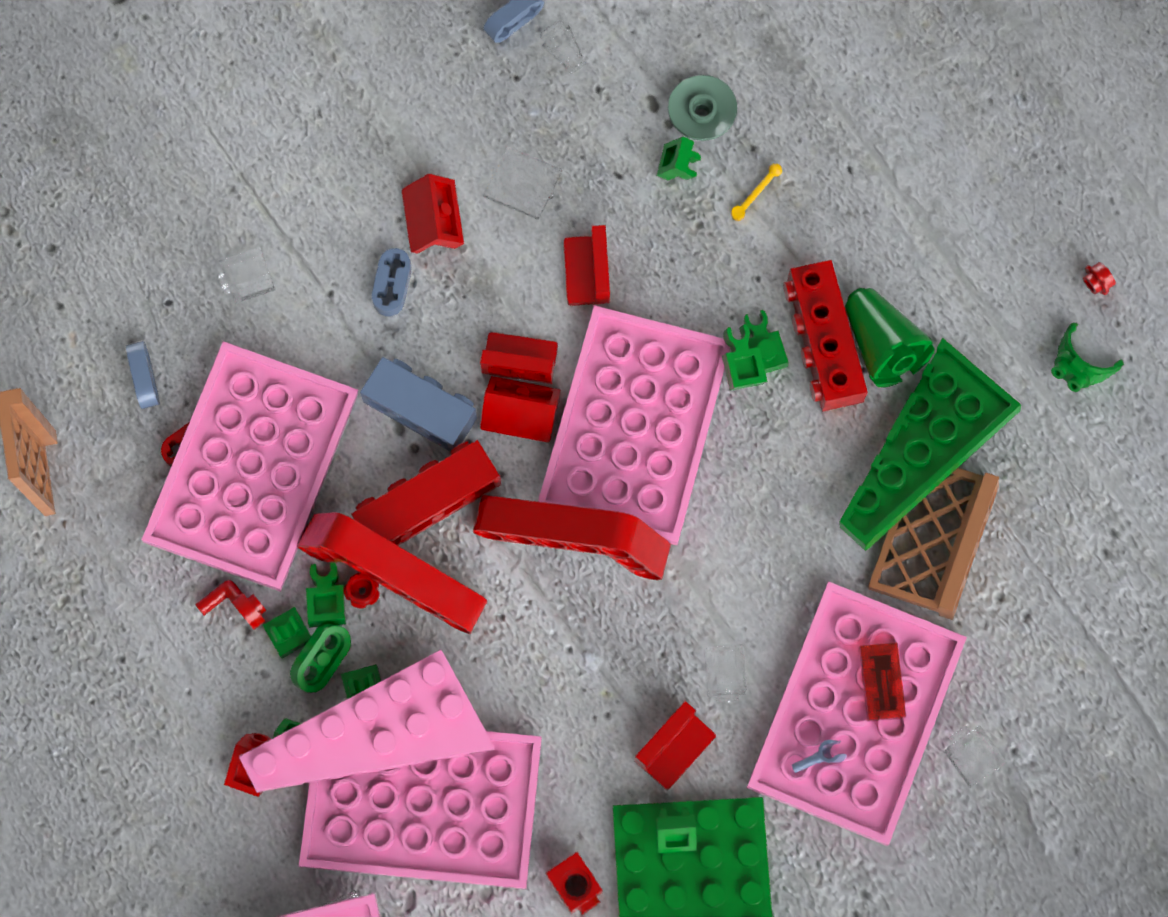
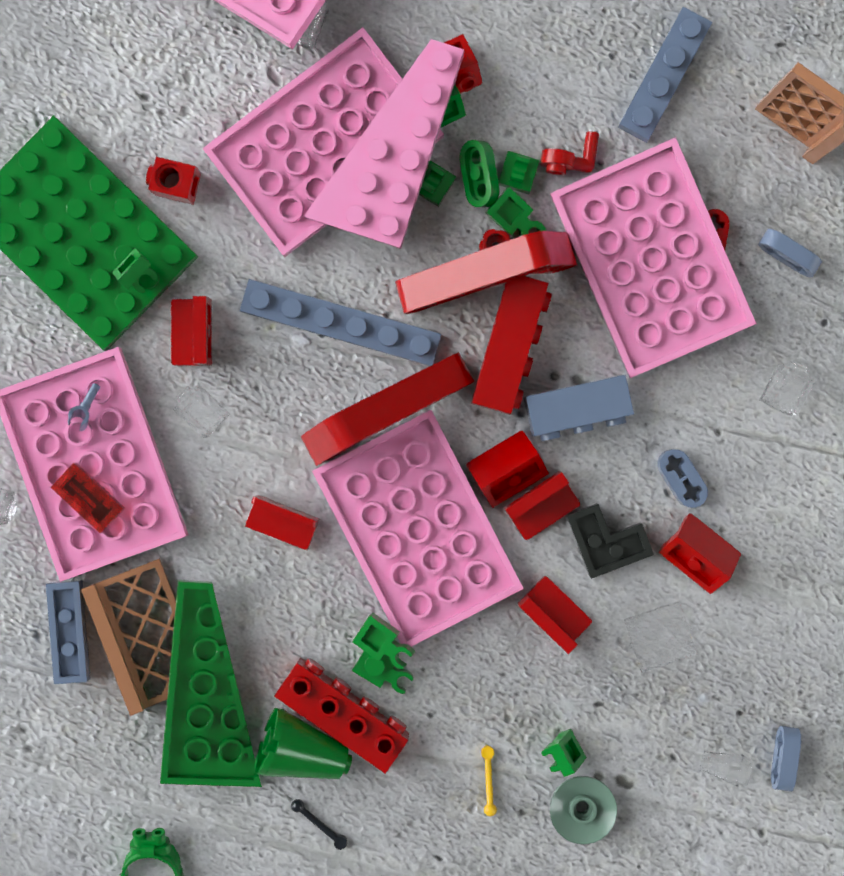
camera: 135 degrees right, 15 degrees up
(97, 603) = (665, 74): none -> sand blue plate
(504, 281) = (606, 551): none -> pearl dark grey plate
(546, 643) = (340, 322): none -> sand blue plate
(739, 526) = (282, 522): none -> red panel
(917, 246) = (340, 841): none -> black hinge
(996, 593) = (68, 632): none -> sand blue plate

